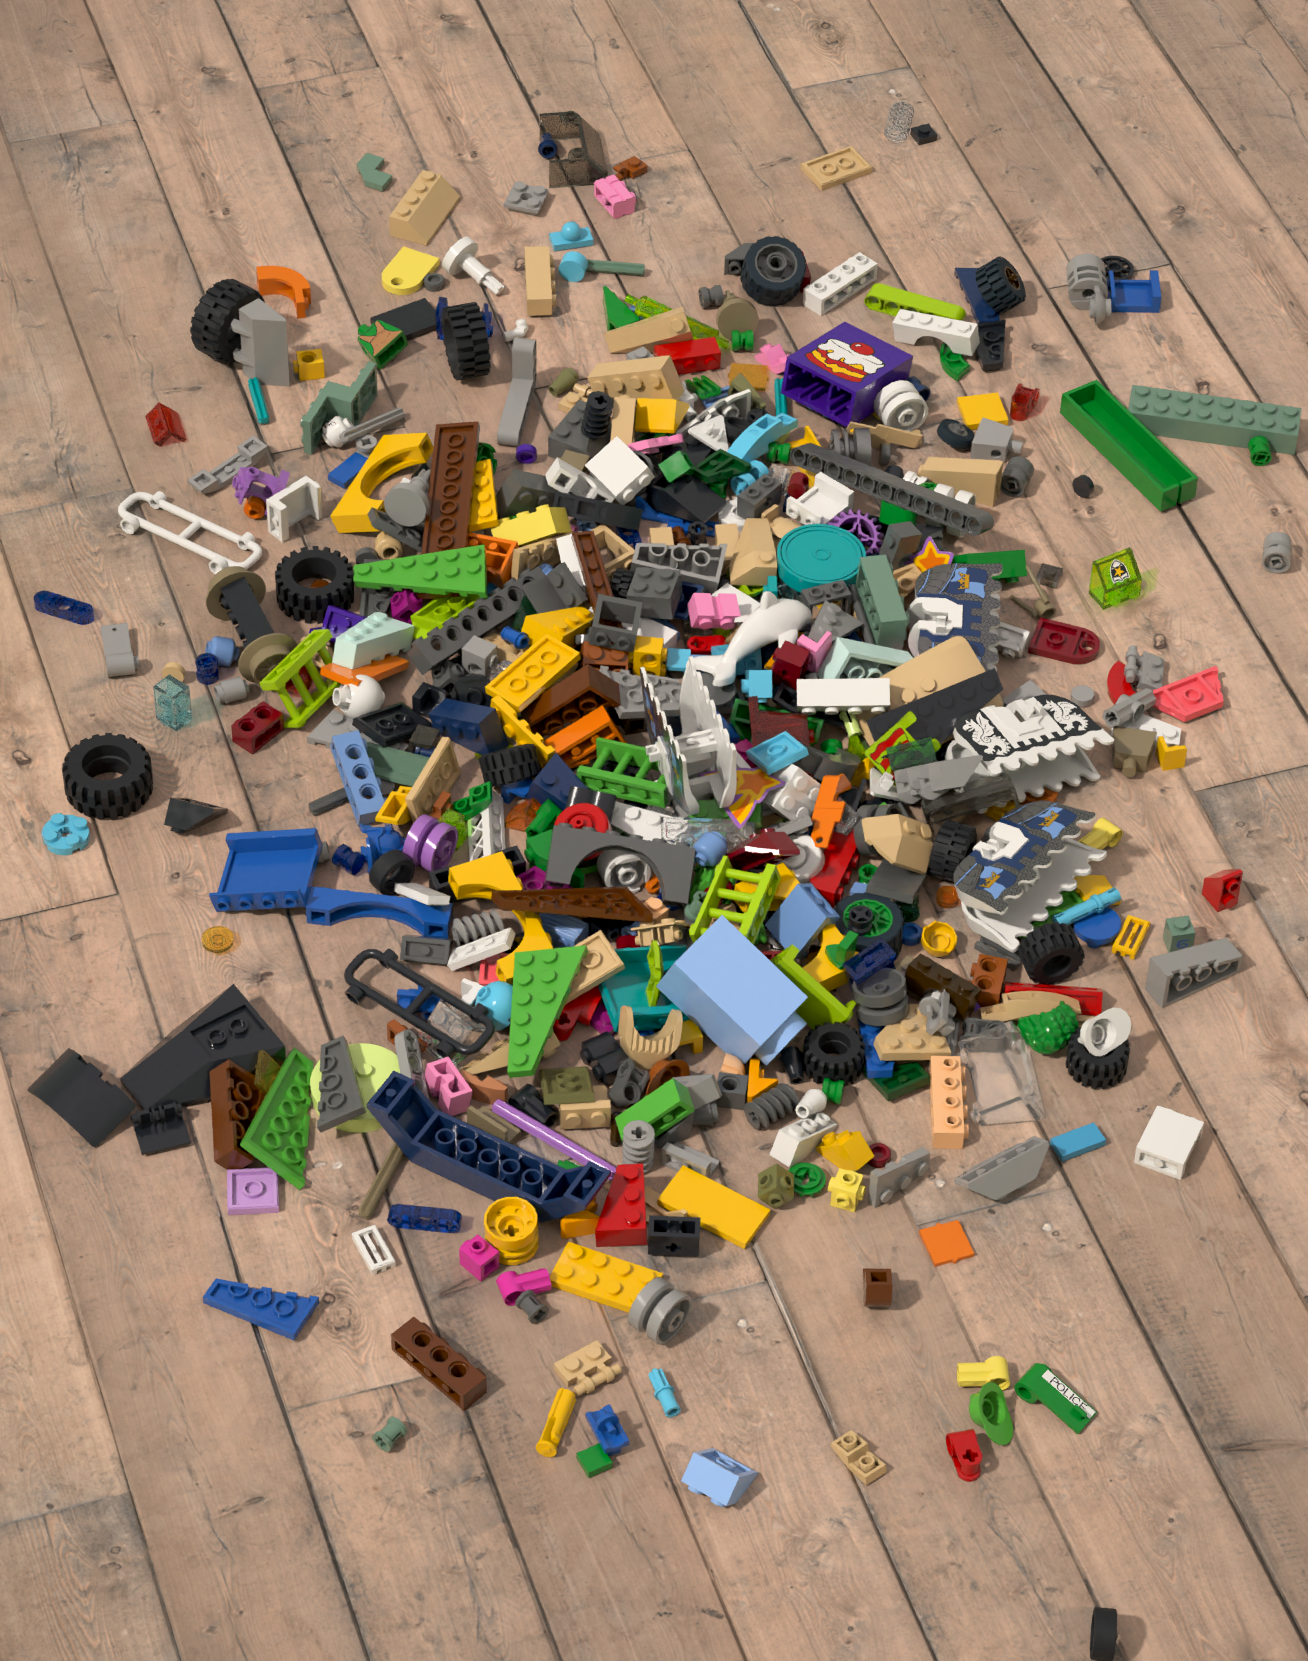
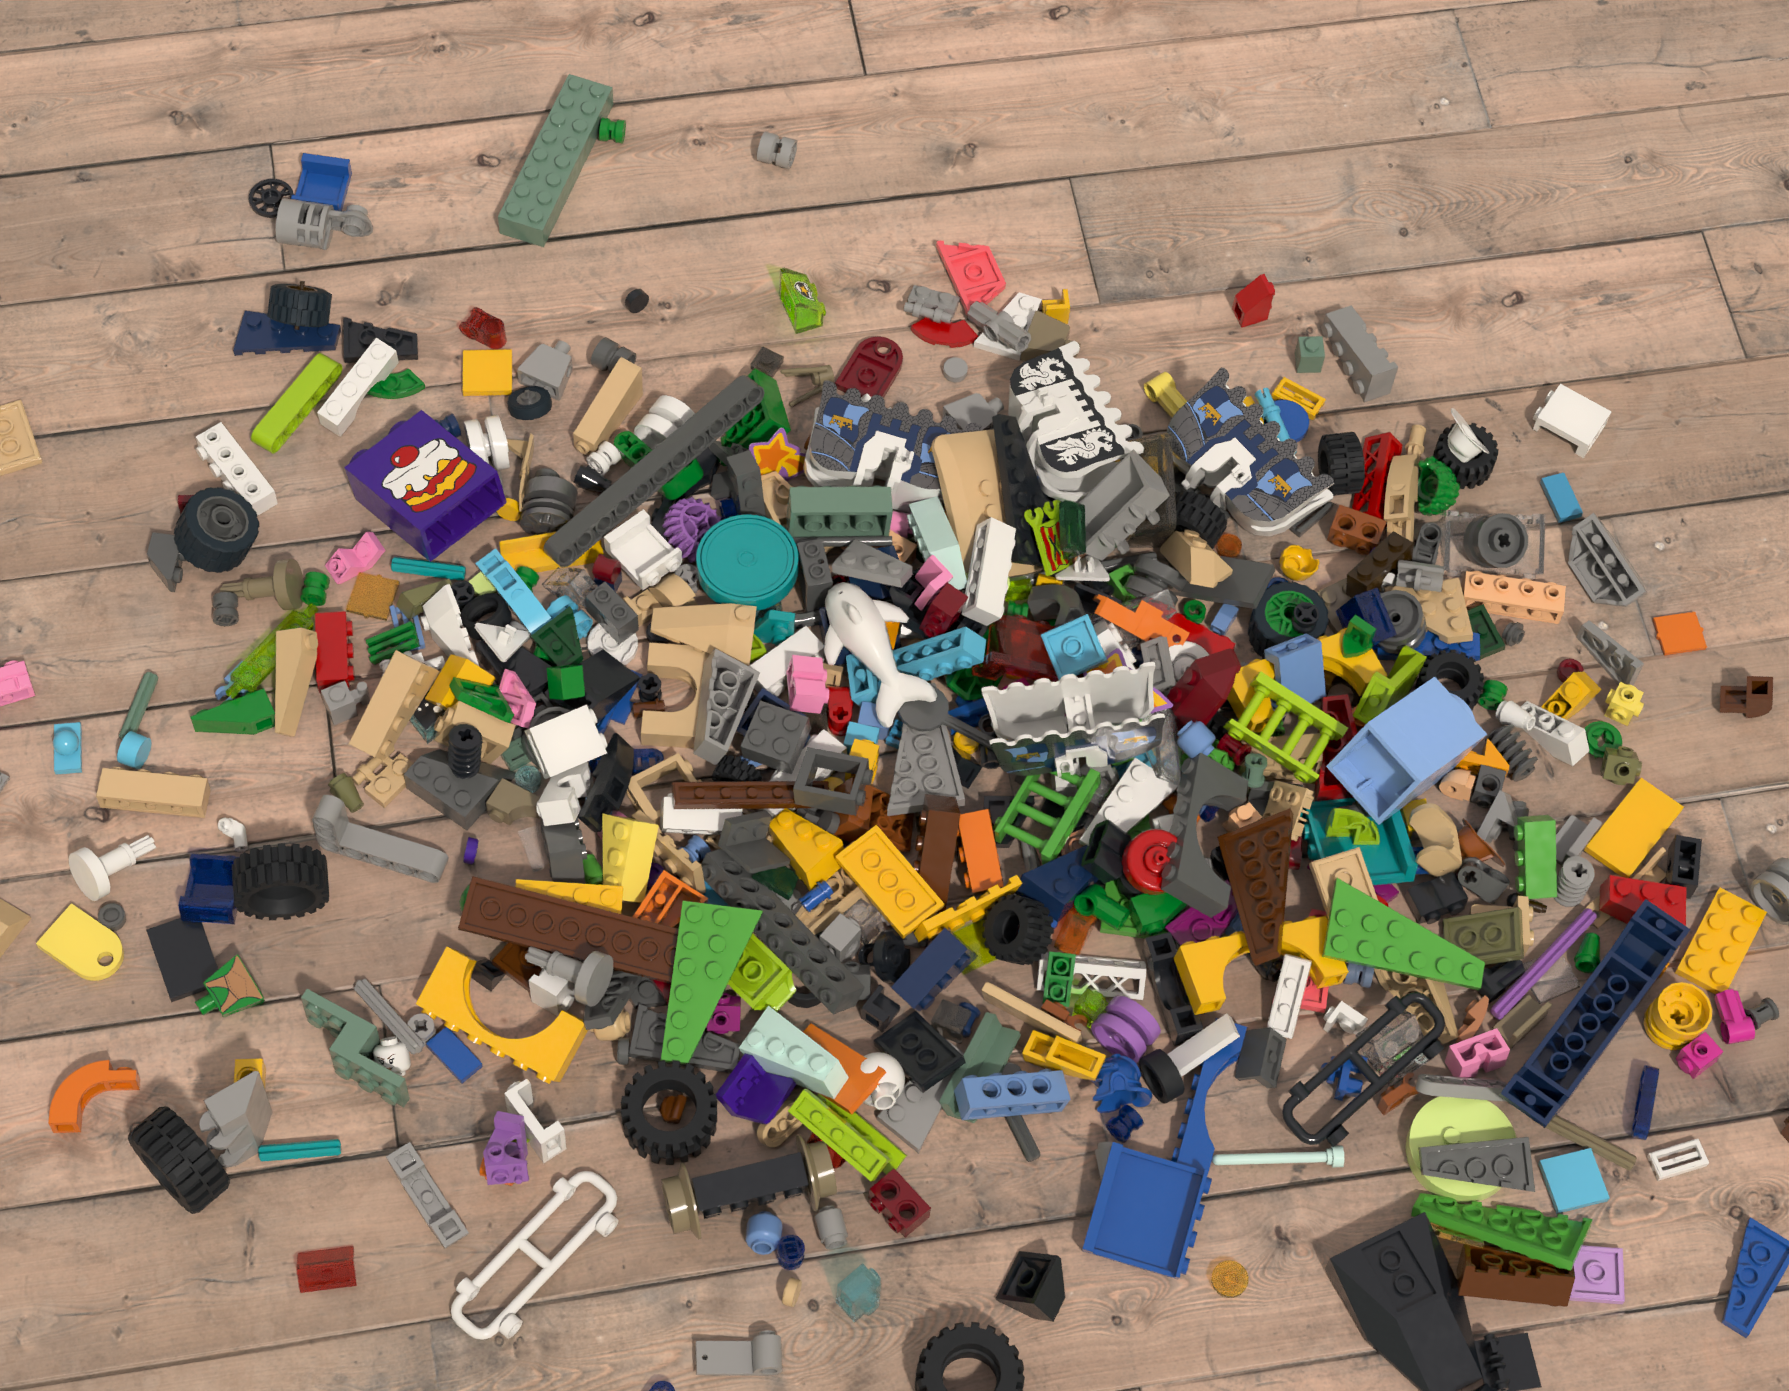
camera: 85 degrees left, 15 degrees up
(338, 1001) = (1332, 1156): none -> light aqua piece
(341, 1172) = (1573, 1180): none -> medium azure tile
(476, 927) = (1244, 1001): light grey piece -> none
(498, 1000) = (1367, 989): medium azure cylinder -> none
(647, 418) = (482, 697): none -> green wing
(906, 1105) = (1513, 633): none -> dark grey plate
(996, 1070) = (1495, 540): none -> dark grey wheel
(1128, 445) = (585, 244): green piece -> none

